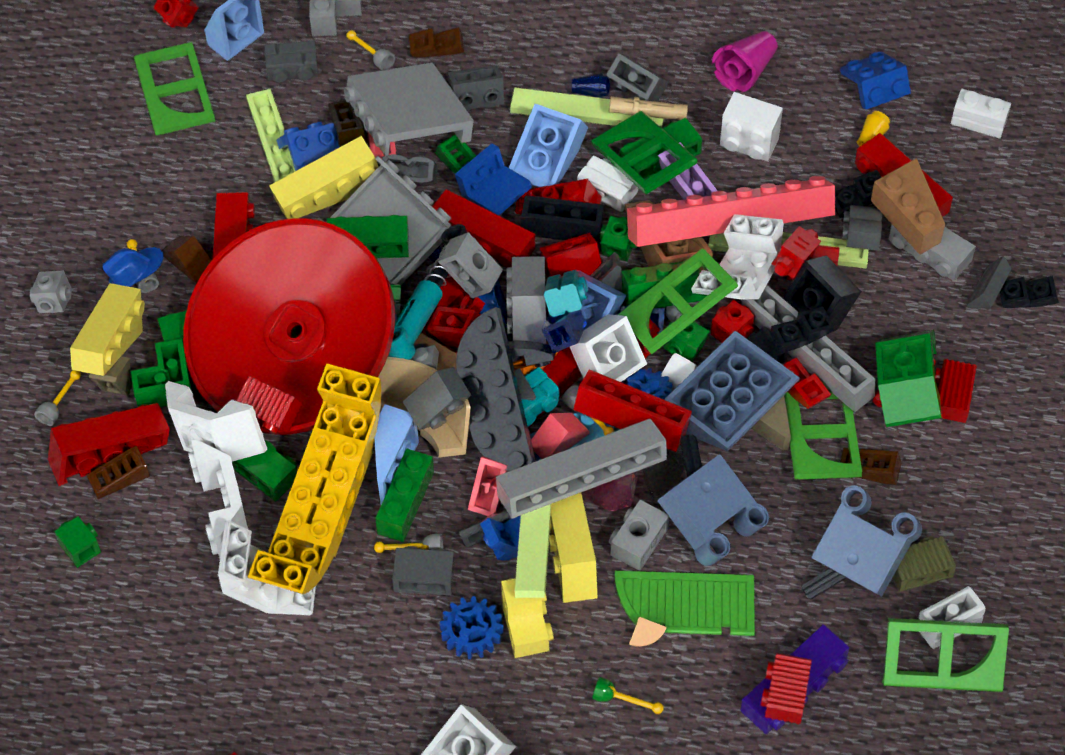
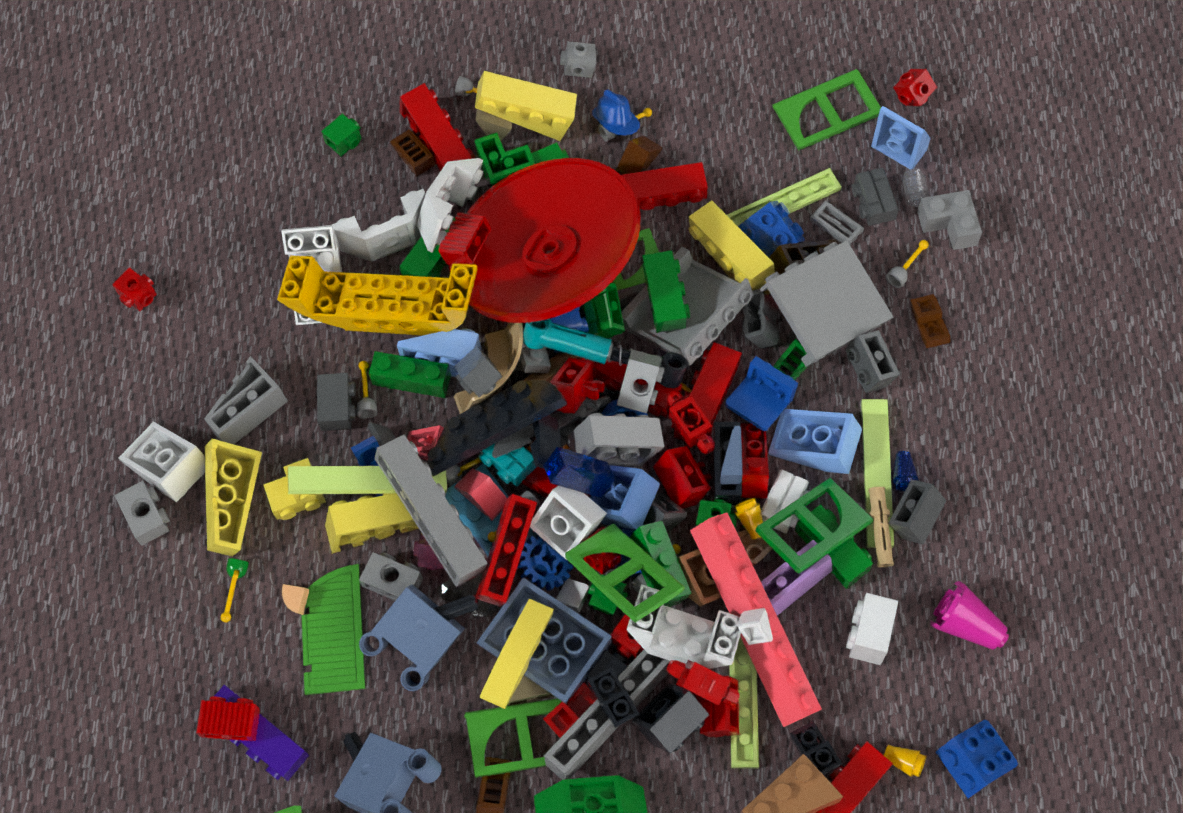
camera: 85 degrees right, 10 degrees up
(288, 28) = (914, 186): none -> clear brick
(313, 102) = (858, 229): none -> light grey tile
(407, 661) = (245, 404): none -> light grey wedge
(473, 632) = (282, 440): blue gear -> none
(518, 234) = (702, 434): none -> red piece
(521, 683) = (229, 492): none -> light yellow wedge
(565, 293) = (606, 463): brick -> none
(566, 198) = (732, 466): none -> sand blue slope
(619, 202) = (750, 516): none -> yellow cone
(746, 201) = (755, 626): none -> white slope
(751, 405) = (516, 654): none -> light yellow slope
(862, 227) = (767, 756): dark grey brick -> none

